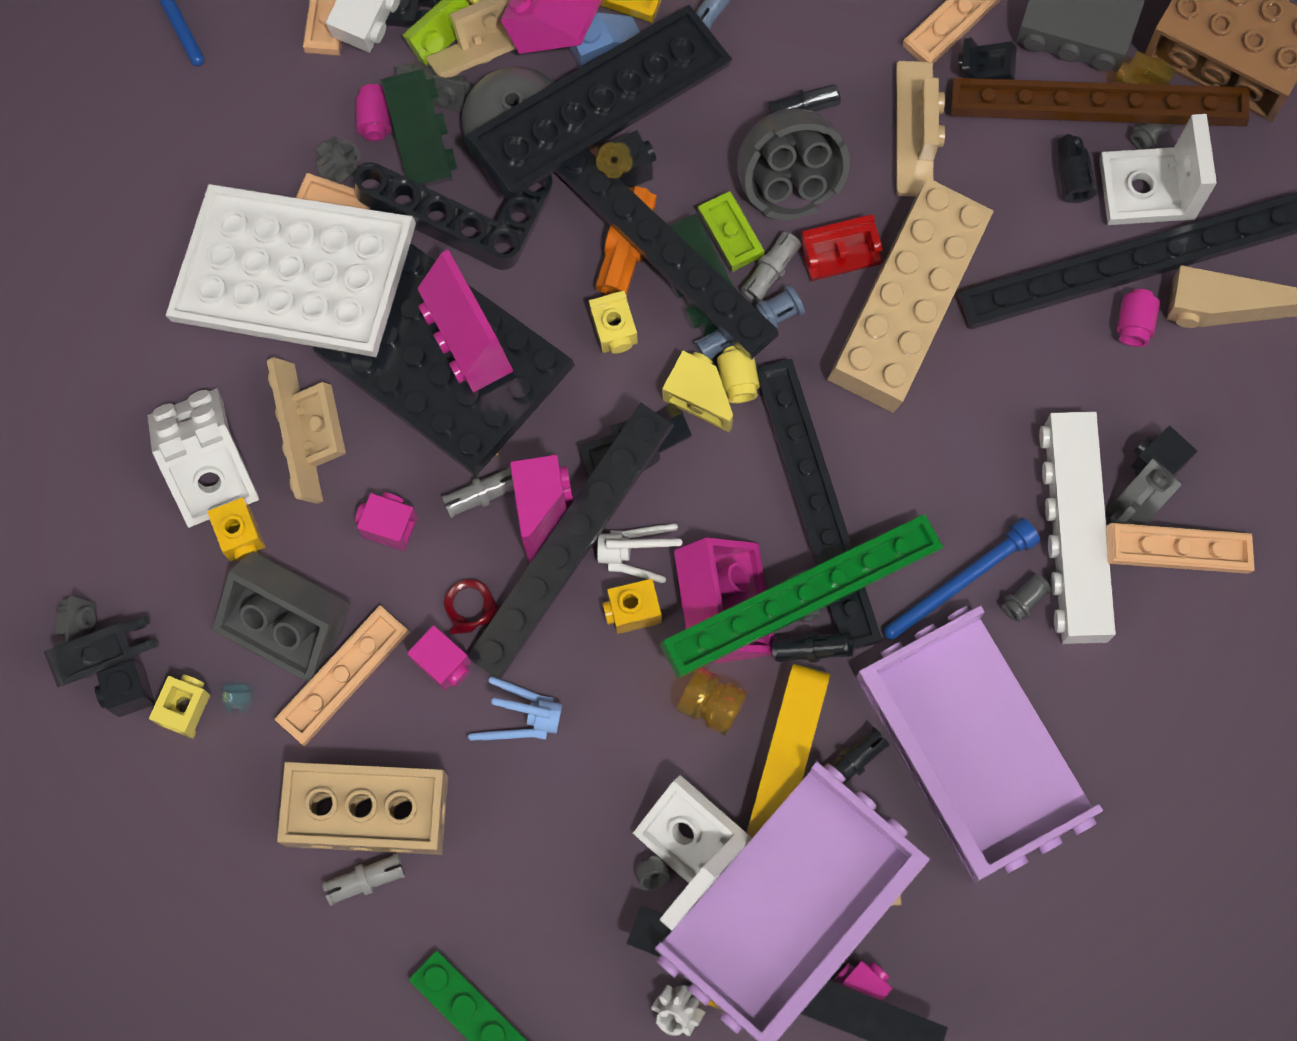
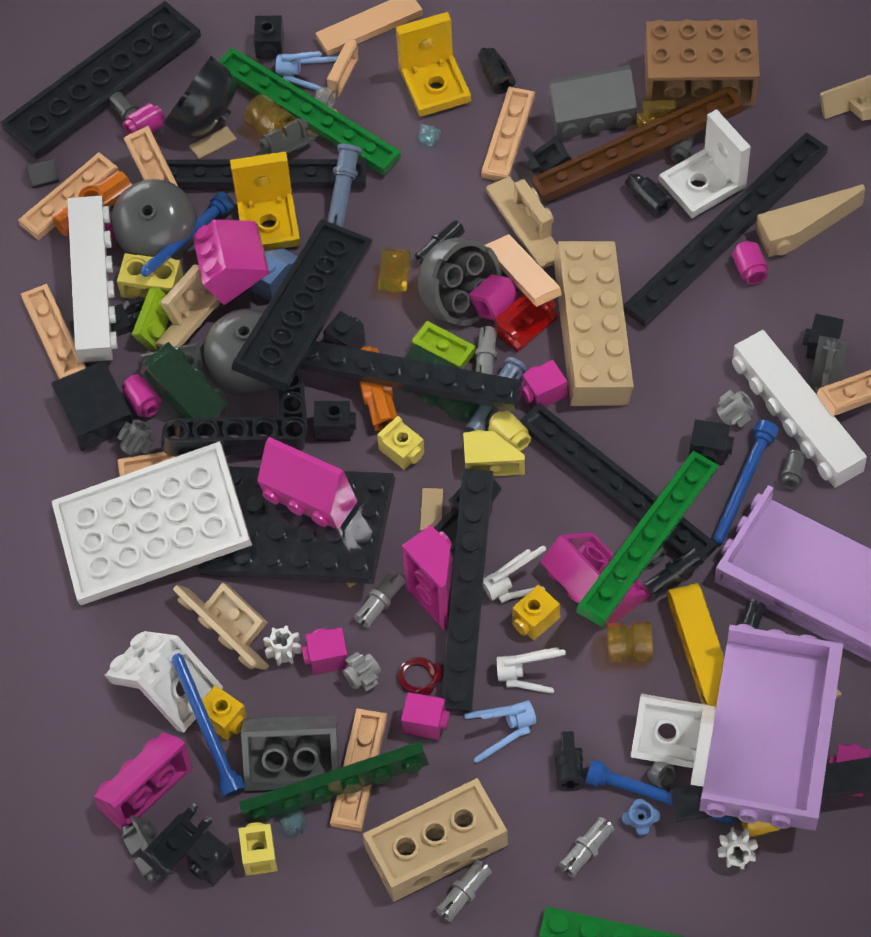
camera: 30 degrees left, 15 degrees down
(109, 560) = (144, 779): none -> dark pink slope
(199, 611) = (228, 779): none -> blue piece
(311, 686) = (333, 783): none -> dark green plate
(315, 95) = (91, 405): none -> black brick
(337, 483) = (288, 640): none -> white gear
(407, 567) = (361, 671): none -> light grey gear
(521, 908) = (586, 847): none -> light grey pin
(557, 255) = (333, 421): none -> black brick
(562, 801) = (569, 764): none -> black hinge
(571, 654) = (512, 667): none -> white plant
(588, 835) = (601, 775): none -> blue piece
(602, 416) = (431, 507): none -> tan window
(610, 150) = (342, 327): clear yellow plate -> none
(612, 913) = (641, 807): none -> medium blue plate
(733, 111) = (394, 270): none -> clear yellow bracket
(810, 339) = (544, 384): none -> dark pink brick
(820, 202) = (493, 296): none -> dark pink brick
(870, 189) = (524, 271): none -> light nougat tile
(953, 513) = (711, 440): none -> black brick
(1006, 488) = (735, 408): none -> light grey gear

